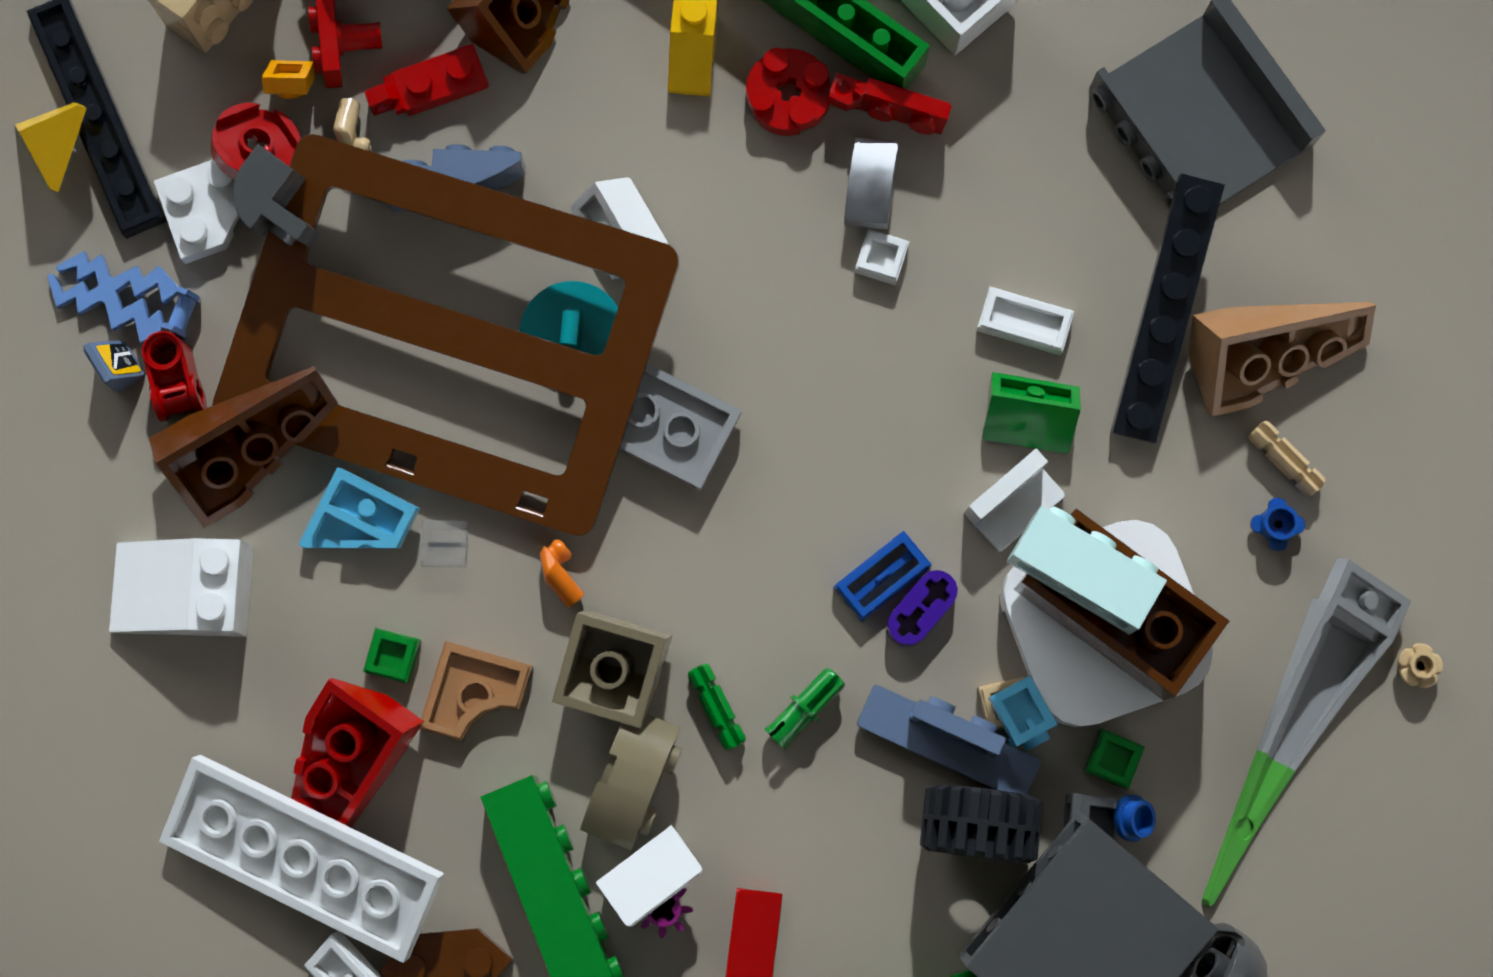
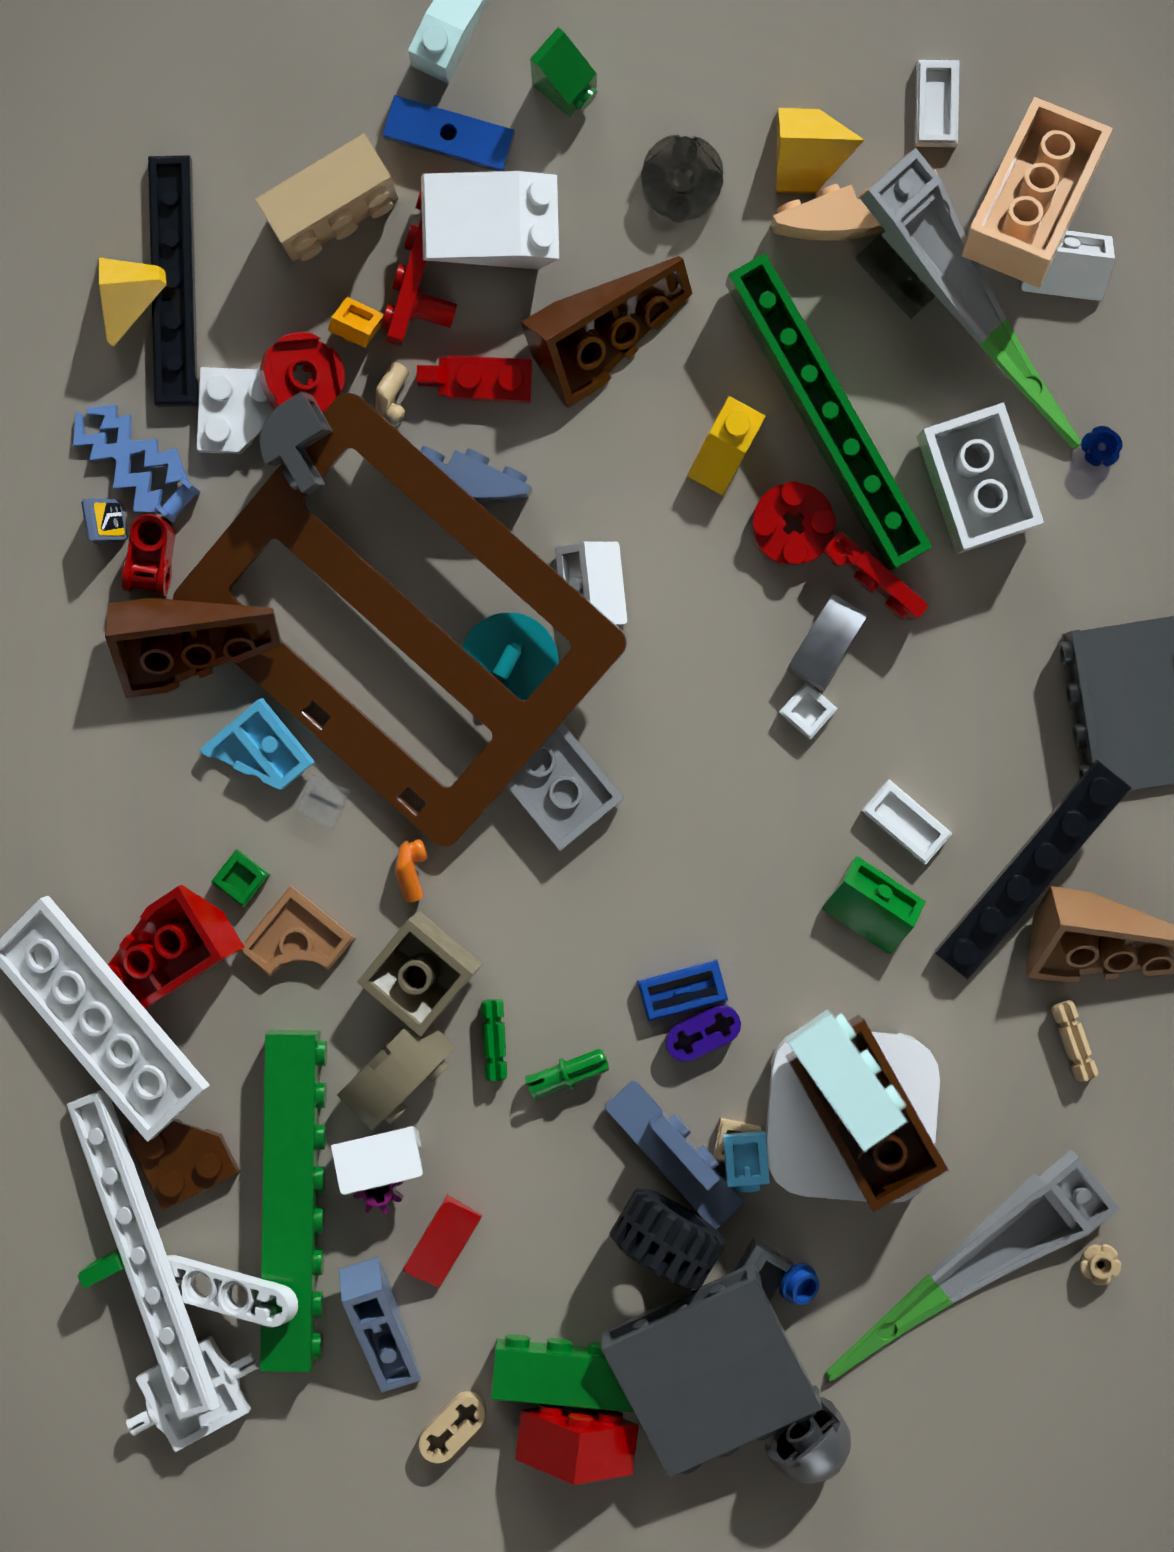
camera: 25 degrees right, 10 degrees up
(182, 587) = (86, 744): white slope -> none
(1012, 501) = (824, 976): white panel -> none
(1114, 759) = (806, 1227): green tile -> none
(1290, 524) = (1049, 1100): blue plate -> none

